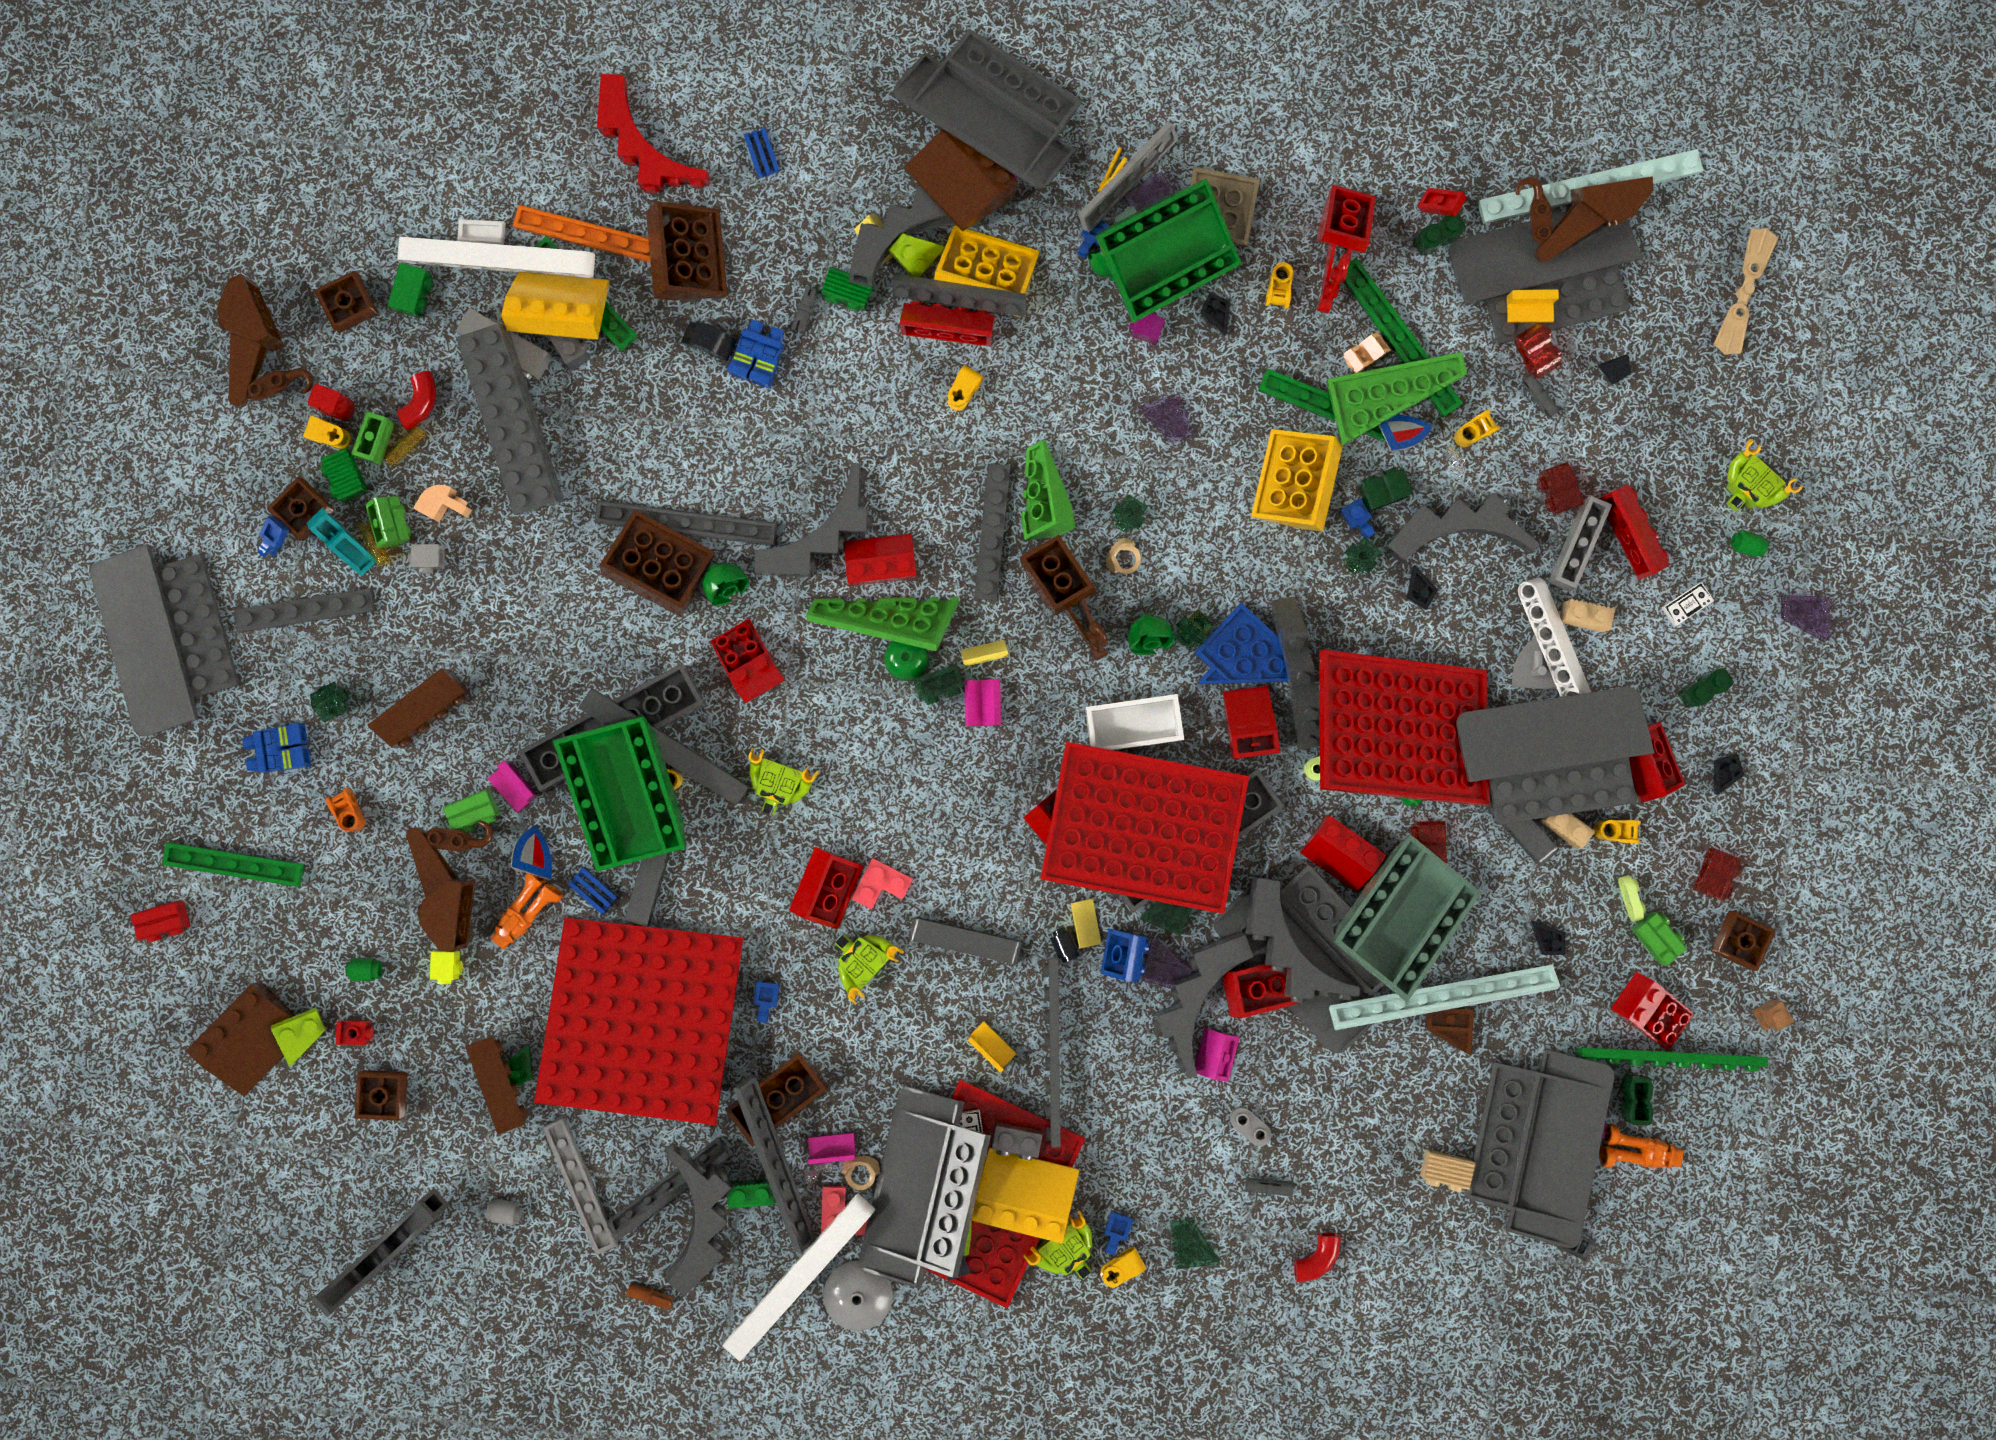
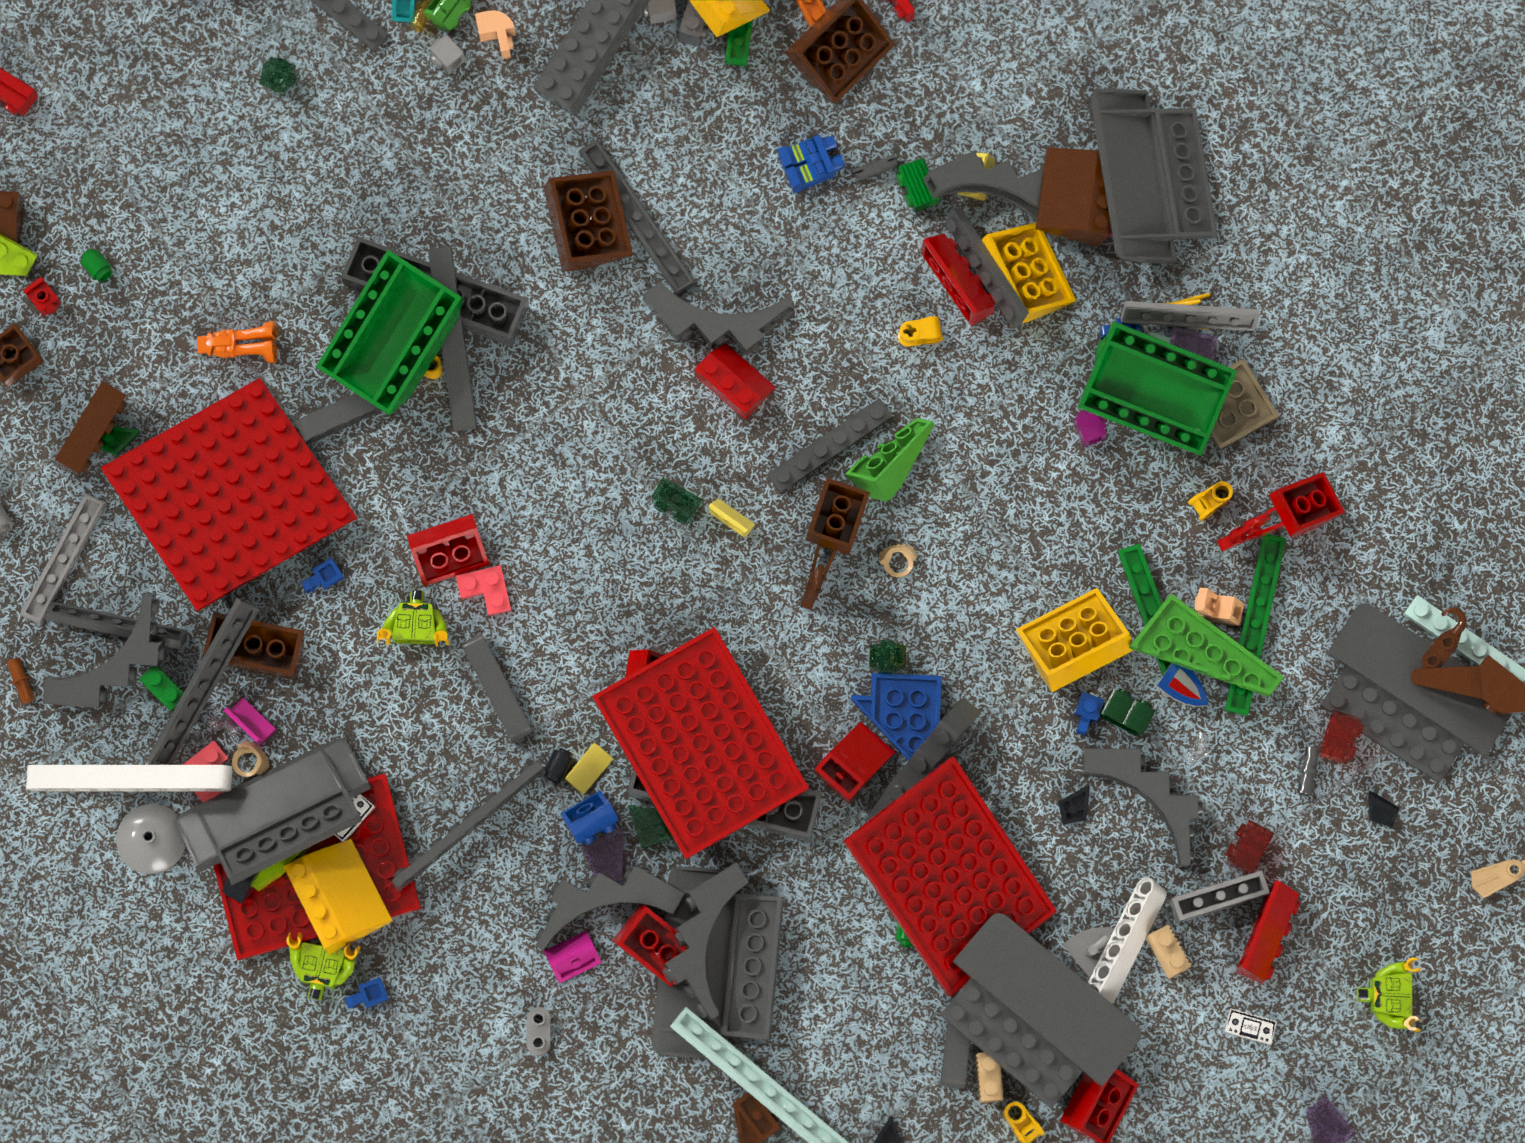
camera: 50 degrees right, 10 degrees down
(233, 864) = (96, 108): green plate -> none
(270, 749) = (211, 68): blue hips -> none
(343, 807) = (206, 150): orange piece -> none
(420, 708) = (328, 142): reddish brown slope -> none
(445, 966) = (148, 321): neon yellow brick -> none
(448, 899) = (201, 281): reddish brown slope -> none
(470, 810) = (282, 243): bright green brick -> none
(512, 786) = (327, 257): dark pink panel -> none
(532, 854) = (287, 313): blue shield -> none
(578, 878) = (298, 362): blue tile -> none
(709, 340) = (789, 118): black brick -> none
(724, 581) = (615, 279): green cylinder -> none
(747, 661) = (570, 347): red slope -> none
(755, 135) = (974, 23): blue tile -> none
(778, 782) = (498, 445): lime torso -> none
(891, 619) = (695, 423): bright green wing -> none
(906, 661) = (676, 462): green cylinder -> none
(915, 253) = (988, 210): lime wing -> none
(982, 702) = (691, 546): dark pink panel -> none
(991, 1046) = (431, 777): yellow panel -> none
(1016, 1140) = (377, 857): flat silver brick -> none
(1125, 1266) = (347, 1023): yellow piece -> none
(1132, 507) = (937, 527): clear green brick -> none
(1135, 723) = (776, 673): white piece -> none
(1150, 633) = (854, 627): green cylinder -> none
(1168, 417) = (1035, 503): clear purple wing -> none
(1190, 1245) = (405, 1063): clear green wing -> none
(1216, 312) = (1149, 470): black piece -> none
(1269, 1186) = (503, 1085): dark grey pin -> none
(1342, 853) = (814, 919): red slope -> none
(1367, 551) = (1066, 735): clear green brick -> none
(1406, 916) = (805, 1002): sand green slope -> none
(1431, 835) = (881, 981): clear red brick -> none
(1439, 234) = (1355, 583): dark green brick -> none
(1442, 201) = (1387, 565): red plate -> none
(1478, 427) = (1239, 743): yellow piece -> none
(1531, 306) = (1369, 702): yellow panel -> none
(1705, 688) = (1201, 1097): dark green brick -> none
(1749, 544) = (1340, 1033): green brick -> none

